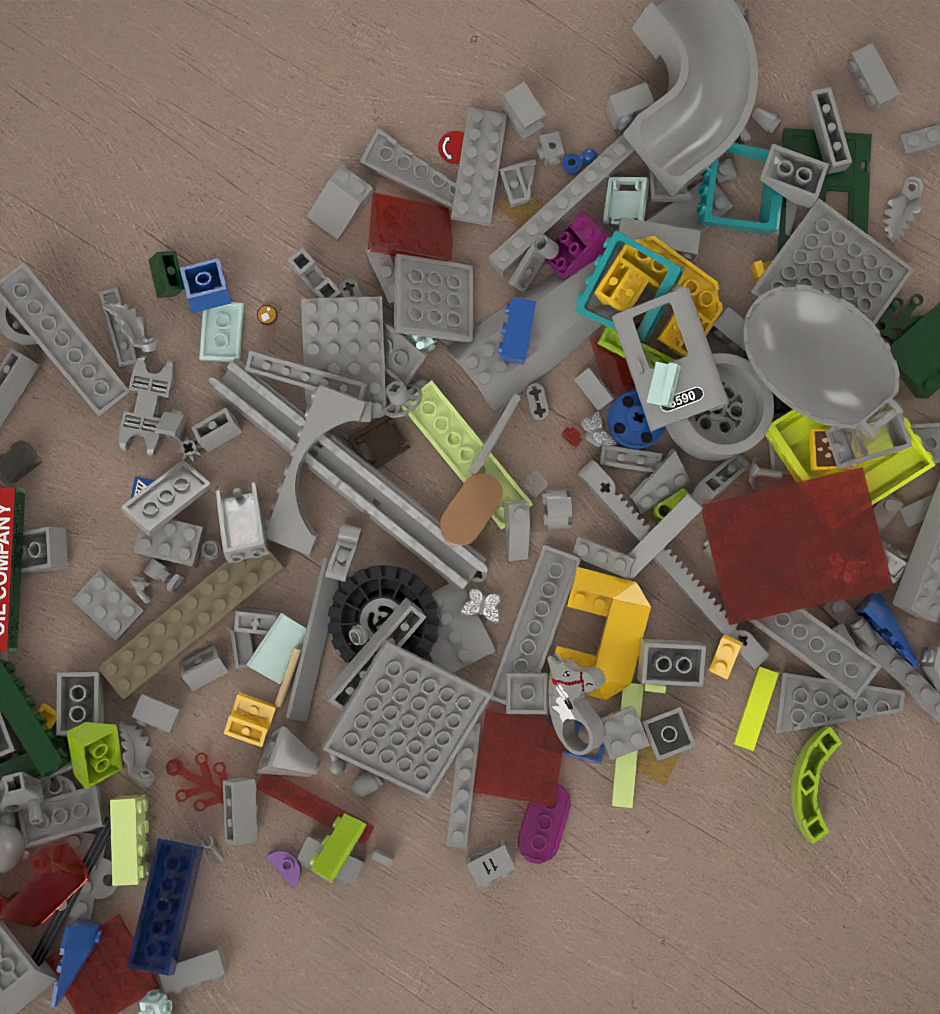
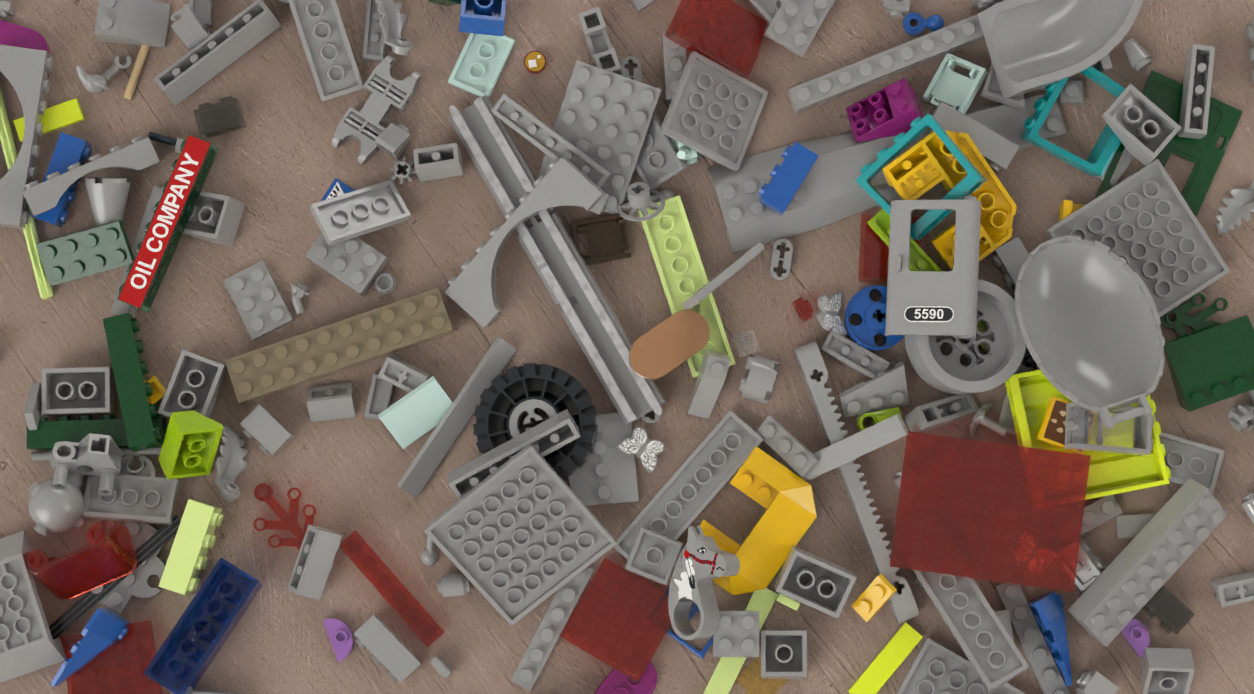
camera: 20 degrees right, 0 degrees up
(159, 572) = (323, 286): light grey leg -> none
(213, 848) = (272, 592): light grey hand -> none
(242, 525) = (427, 271): door -> none
(250, 719) = (359, 474): yellow slope -> none
(287, 677) = (413, 446): tan bar -> none
(287, 756) = (383, 525): light grey slope -> none
(337, 847) = (400, 636): lime slope -> none
(343, 552) = (521, 338): light grey plate -> none
(358, 635) = (504, 429): light grey plate -> none
(518, 182) = (850, 21): light grey wing -> none
(523, 212) = (843, 46): clear yellow piece -> none
(531, 262) = (831, 111): light grey plate -> none
(594, 388) = (846, 268): light grey tile -> none
(664, 384) = (916, 291): light aqua panel -> none
(861, 628) = (1027, 626): light grey cone -> none

